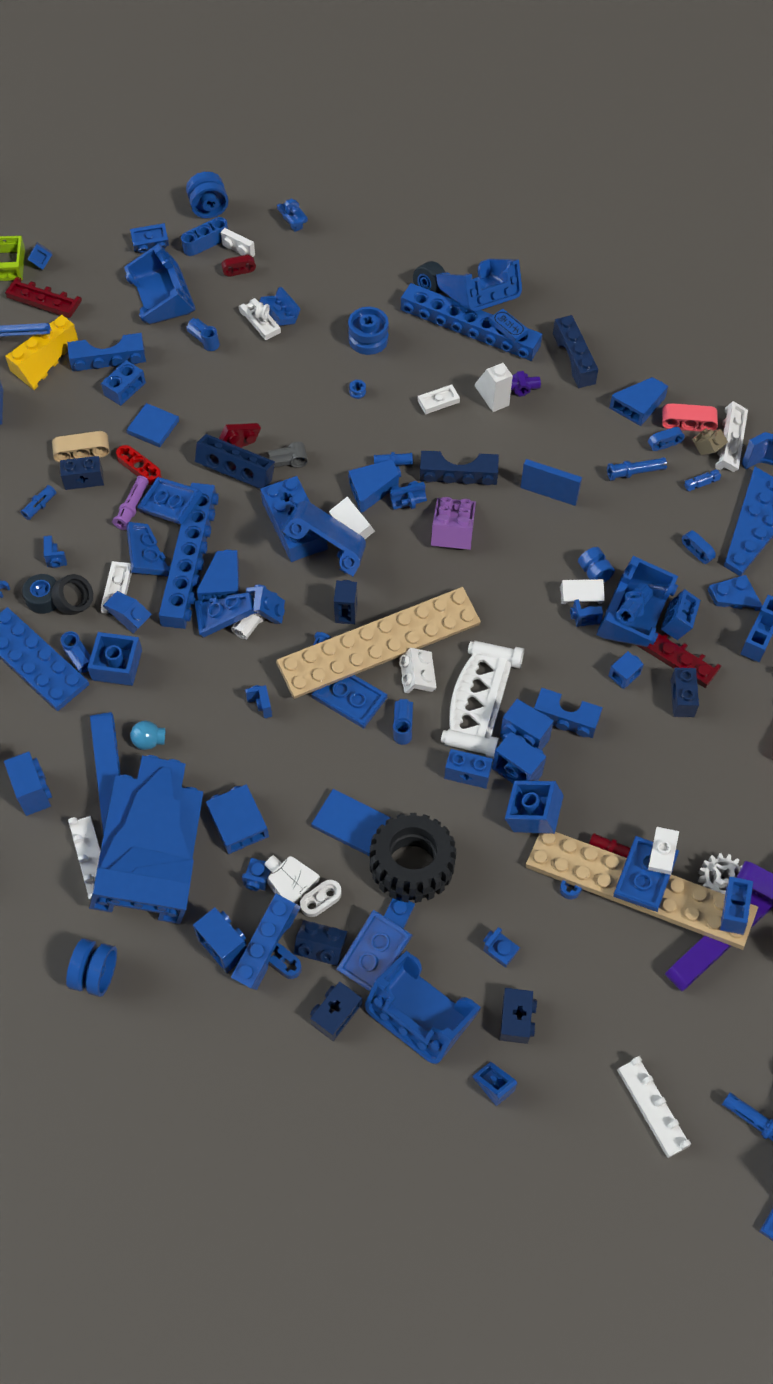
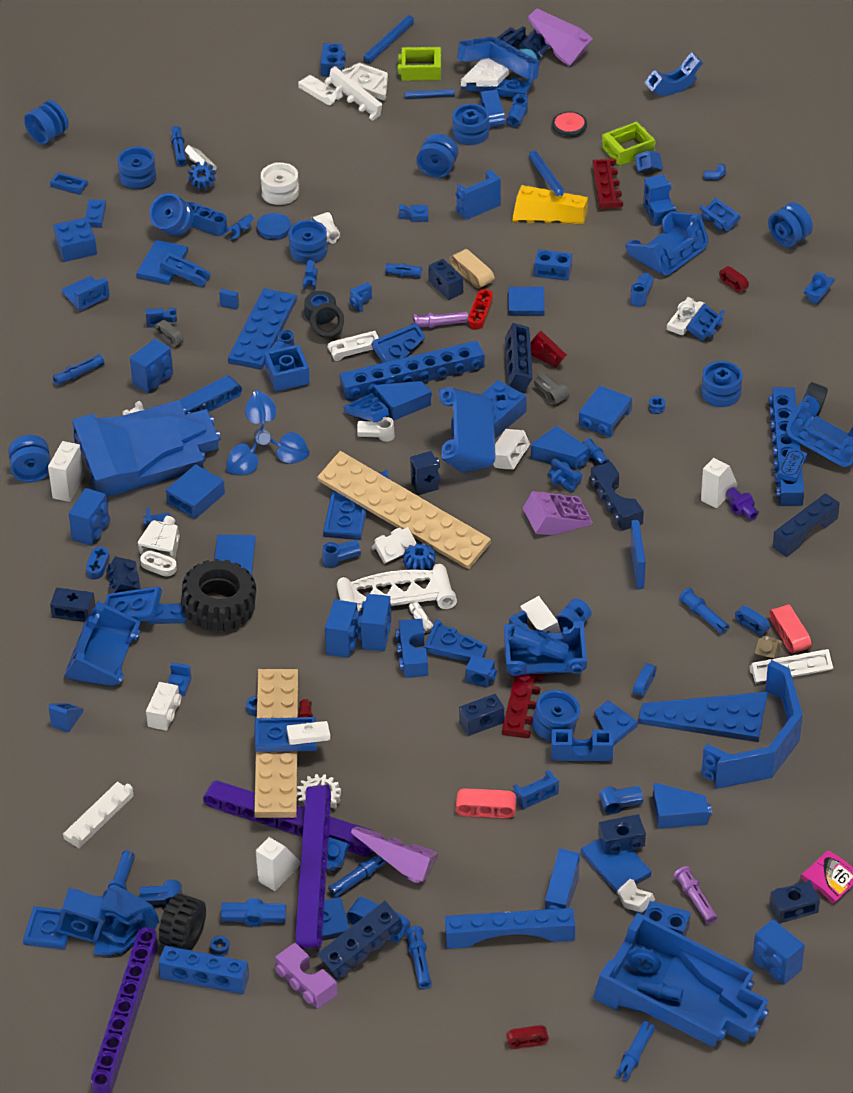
camera: 65 degrees right, 15 degrees down
(85, 357) = (589, 254): blue arch -> none
(91, 218) = (717, 173): none -> blue arm
(100, 271) = (657, 198): none -> blue brick
(127, 611) = (332, 357): blue slope -> none
(139, 935) = (66, 471): none -> white brick
(147, 735) = (234, 415): dark azure piece -> none
(169, 500) = (452, 336): blue tile -> none
(196, 702) = (290, 450): none -> blue plant
(203, 236) = (749, 246): blue beam -> none
(237, 243) = (757, 264): white plate -> none
(256, 957) = (122, 535): blue arch -> none
(260, 695) = (307, 465): blue bracket -> none
(267, 603) = (390, 430): blue bracket -> none
(346, 428) = (604, 410): none -> blue panel
(438, 399) = (683, 457): white plate -> none
(449, 657) = (419, 557): none -> blue gear
(468, 768) = (319, 602): blue brick -> none
(522, 1002) = (125, 706): dark blue brick -> none
(523, 689) = (419, 613): none -> white axle
(534, 806) = (307, 651): blue brick -> none
(536, 977) = (163, 706): none -> white brick
(578, 677) = (451, 644): none -> blue wing
(639, 400) = (785, 588): blue slope -> none
(680, 614) = (556, 680): blue brick -> none
(702, 480) = (725, 661): blue axle -> none
(719, 632) = (555, 711): none -> blue wheel
(736, 905) = (279, 784): blue brick -> none

